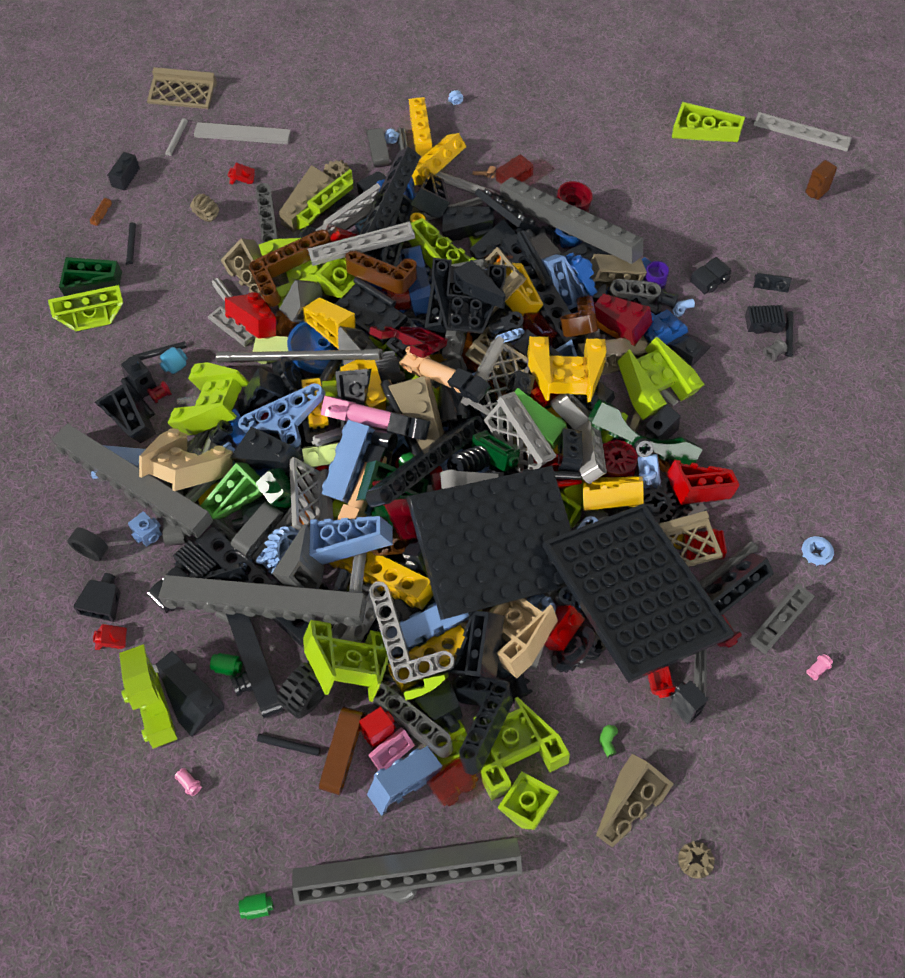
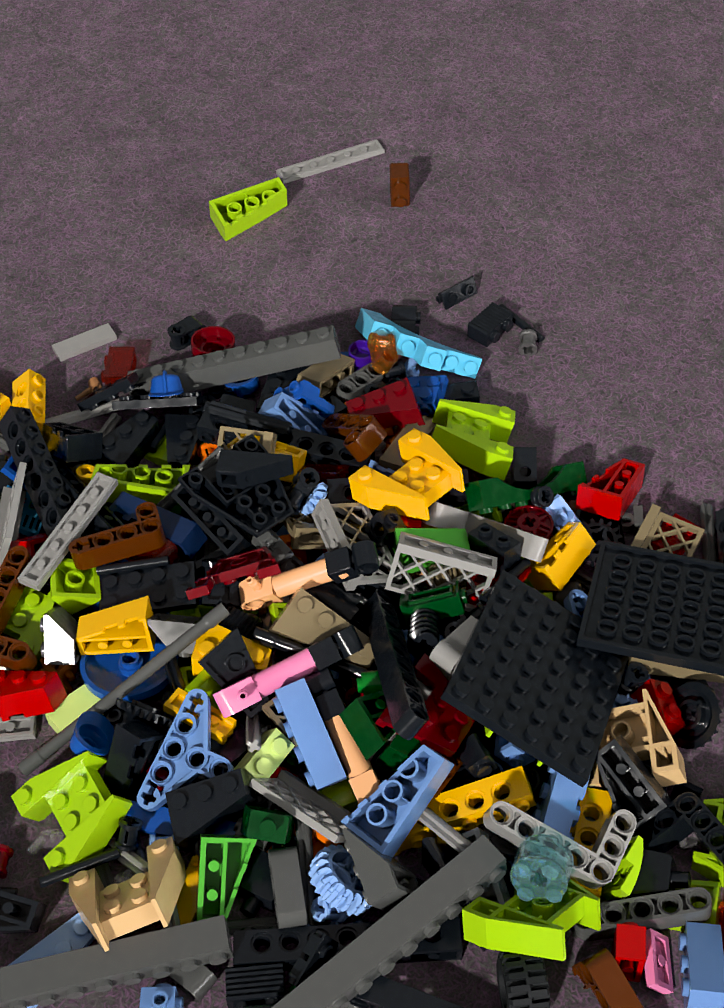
camera: 45 degrees left, 10 degrees down
(183, 428) = (71, 870): none -> black bar
(249, 363) = (92, 734): none -> blue piece
(367, 639) = (541, 869): none -> clear light blue brick
(484, 181) = (108, 392): none -> black wing
(514, 201) = (165, 385): none -> blue piece
(515, 141) = (84, 342): none -> light grey tile
(579, 175) = (183, 332): none -> black piece
(667, 278) = (382, 352): none -> clear orange piece
(689, 288) = (422, 350): none -> medium azure arch

